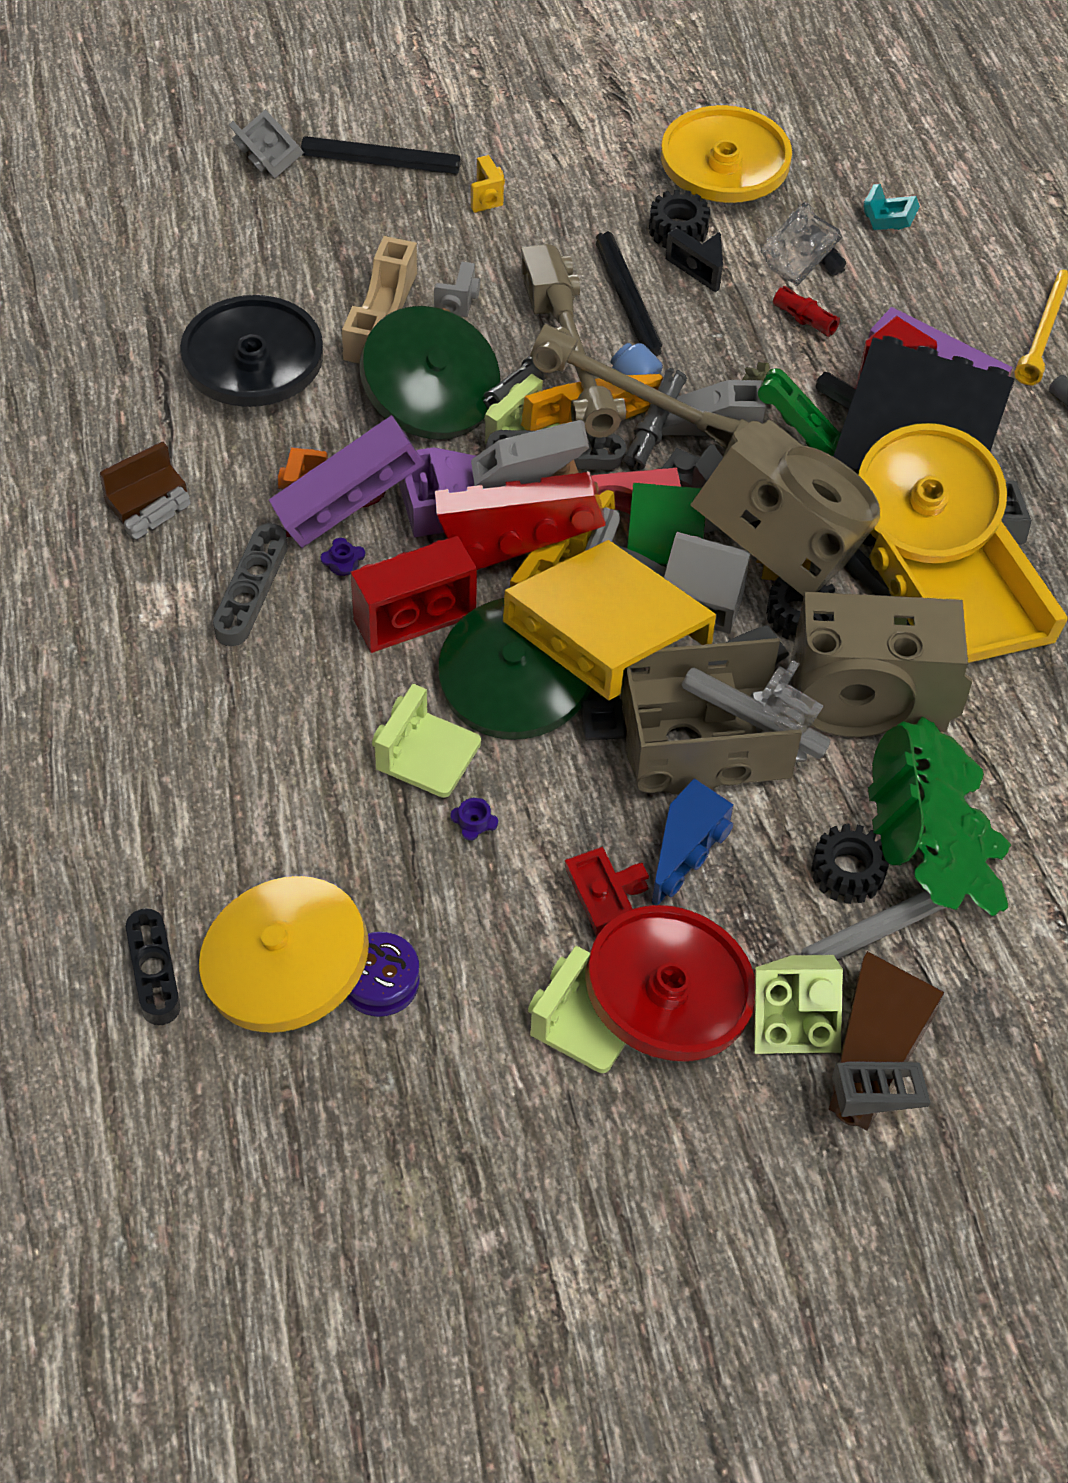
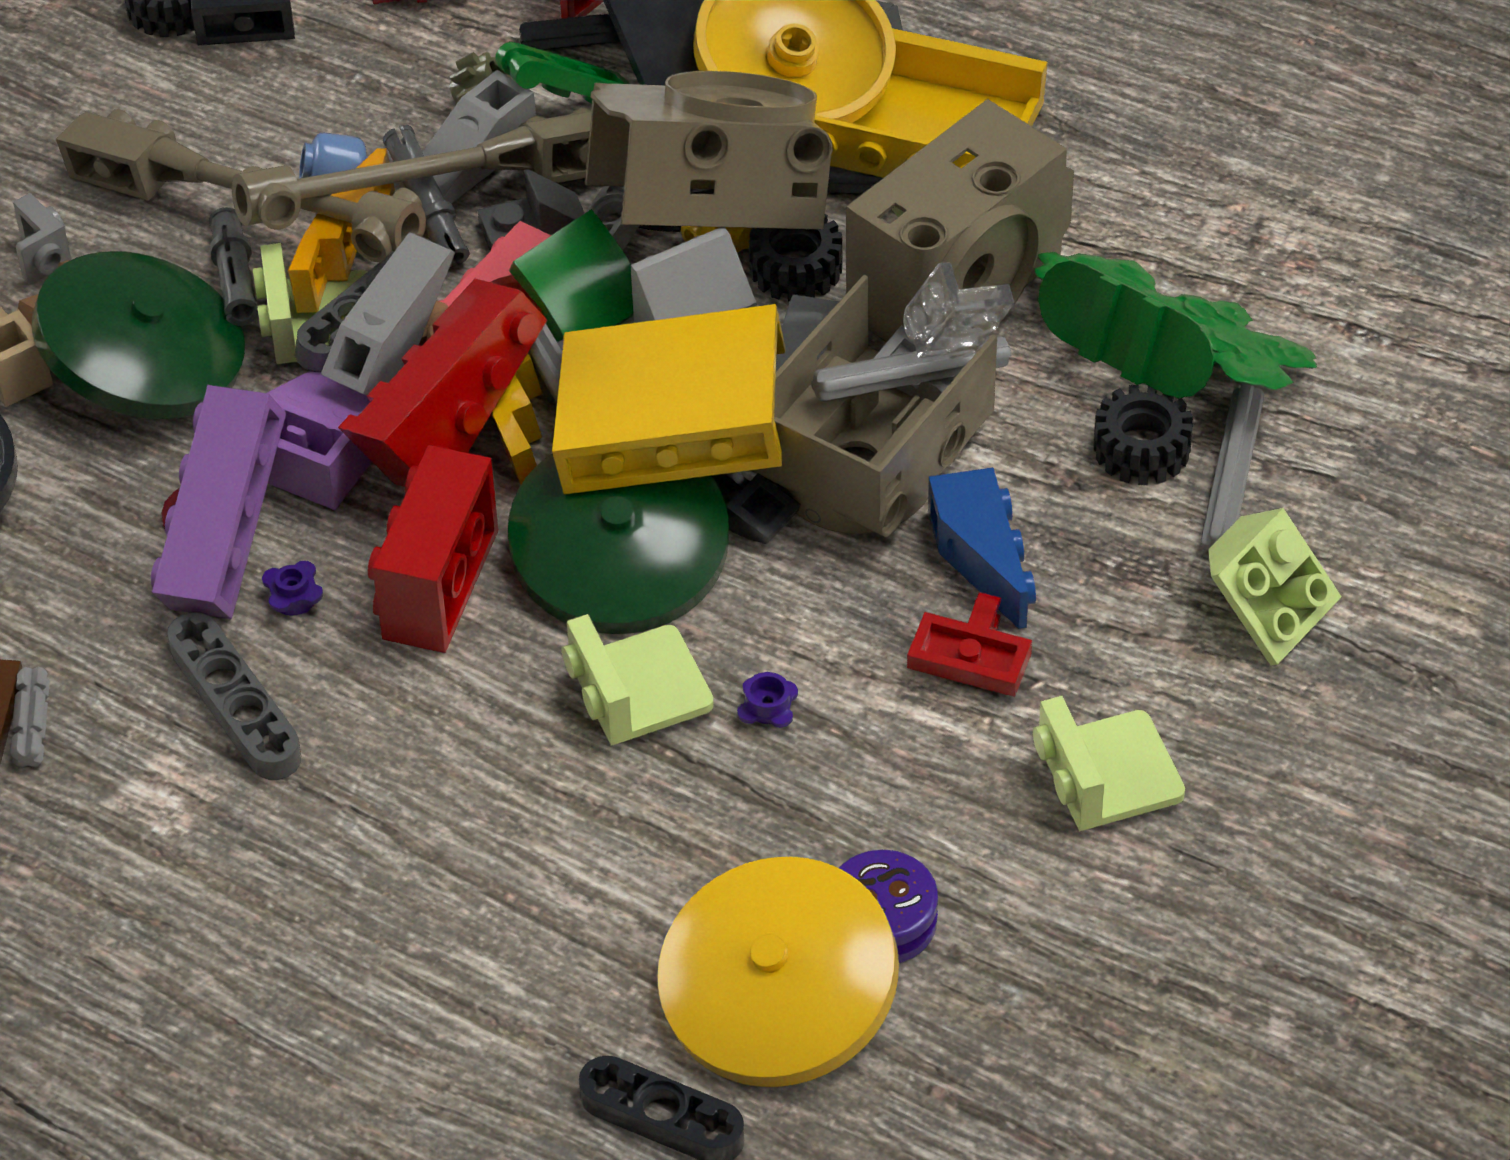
camera: 45 degrees left, 5 degrees down
(298, 464) = (130, 544): orange bracket -> none
(628, 292) = (211, 103): black axle -> none
(670, 983) = (1147, 663): red dish -> none
(855, 1103) = (1421, 604): dark grey slope -> none
(884, 1022) = (1367, 552): reddish brown slope -> none

